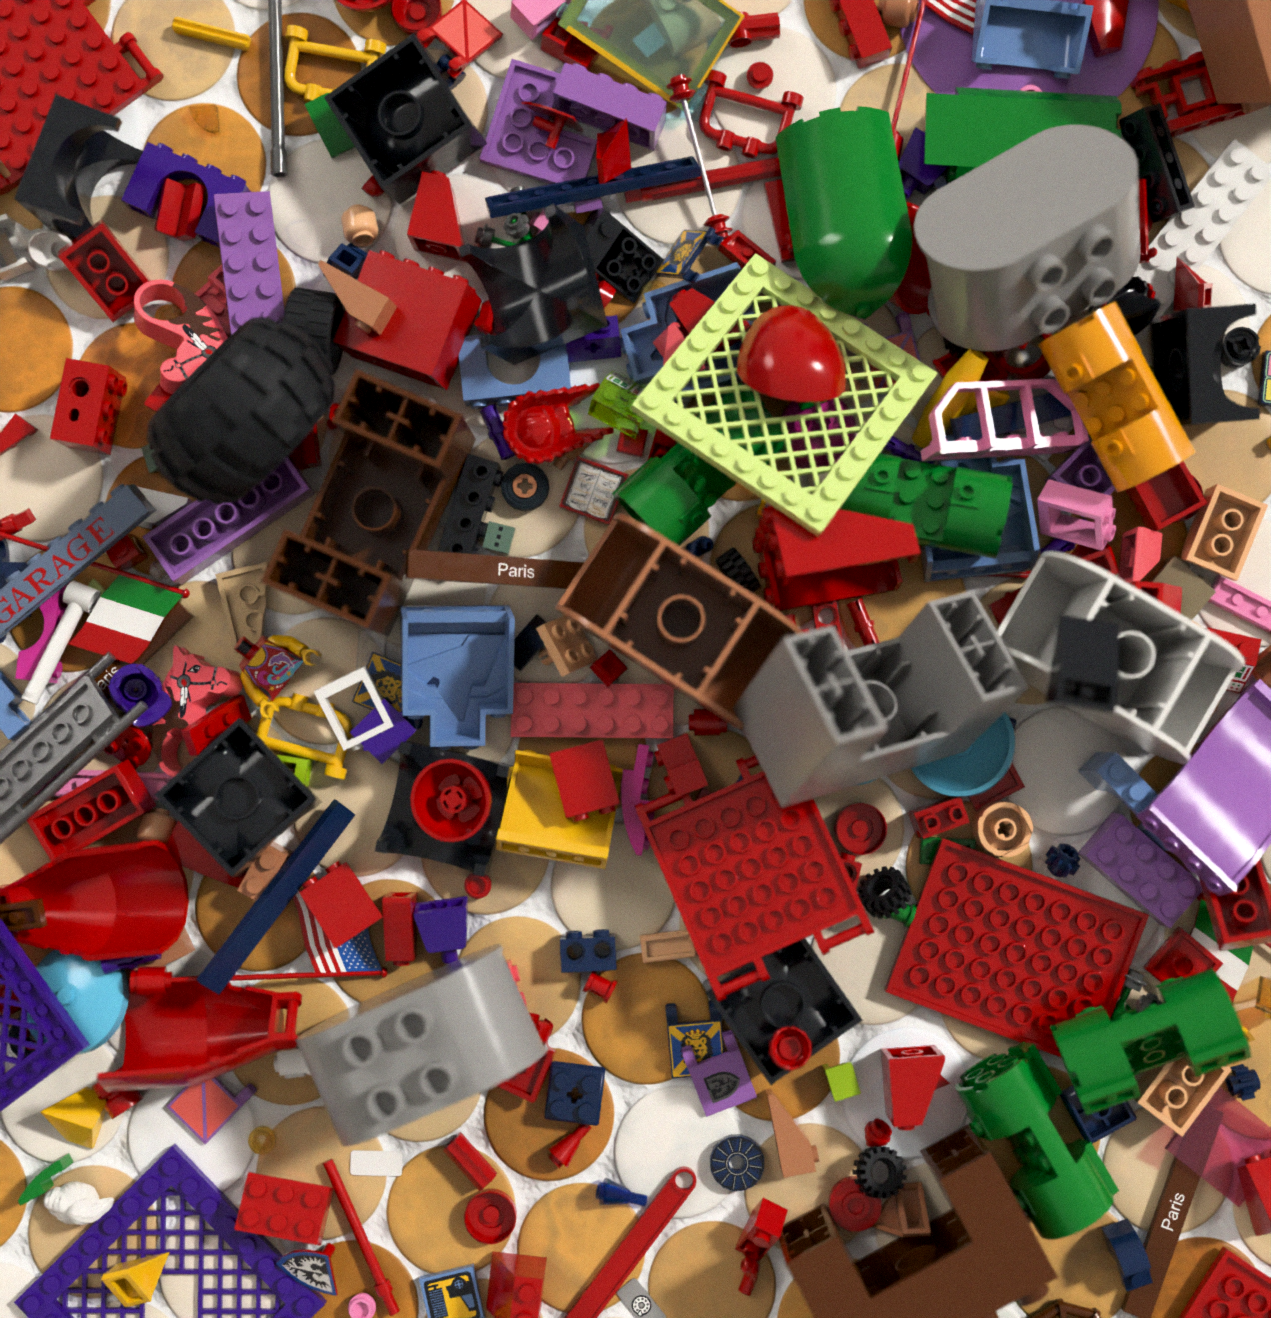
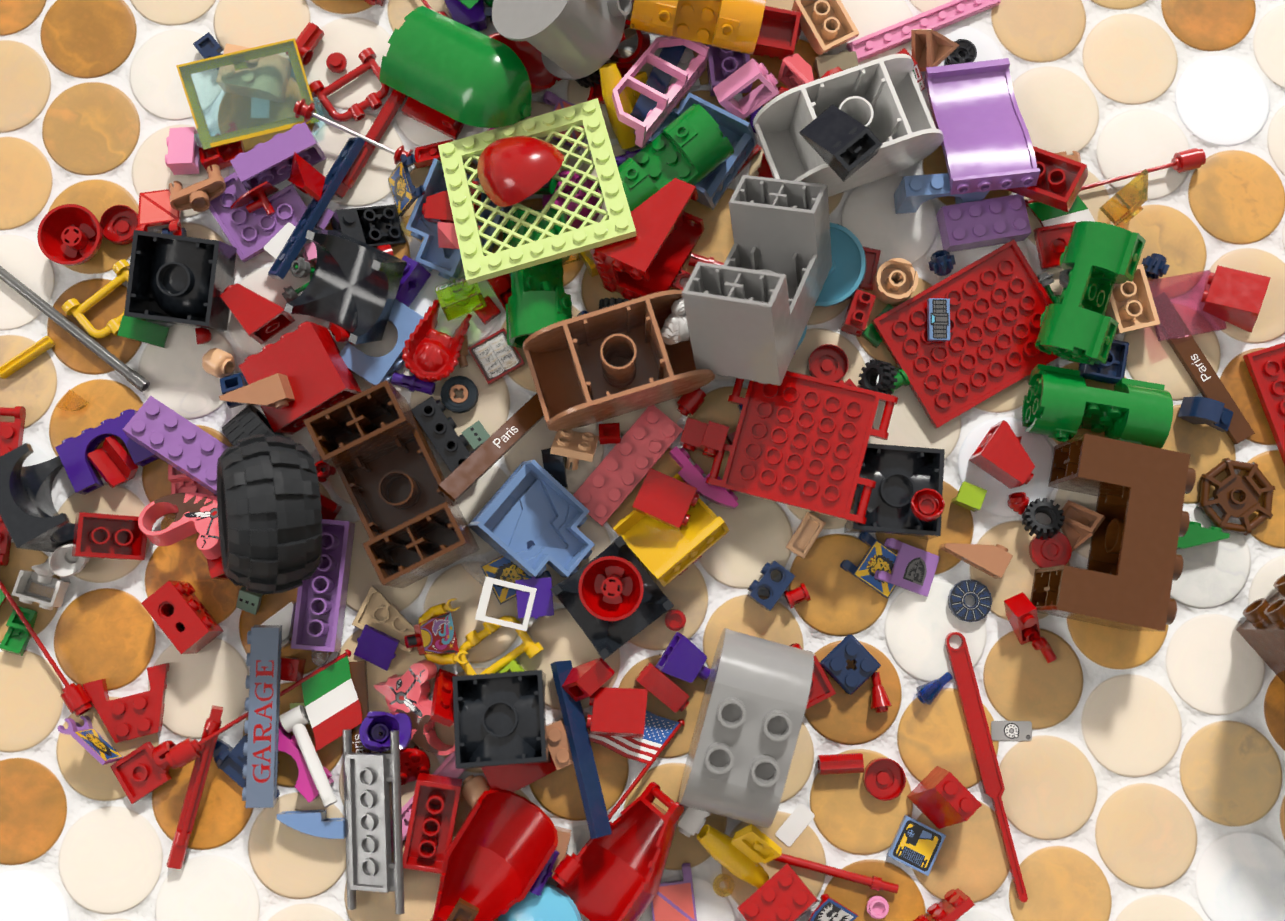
camera: 55 degrees left, 5 degrees down
(213, 616) = (376, 647): none -> dark purple piece
(302, 1135) = (742, 852): none -> yellow plate
(347, 847) = (587, 678): none -> red slope
(507, 60) = (199, 194): none -> nougat connector
(527, 179) = (277, 243): none -> white sticker
(757, 650) = (675, 326): none -> white hair
(998, 905) = (938, 319): none -> tile

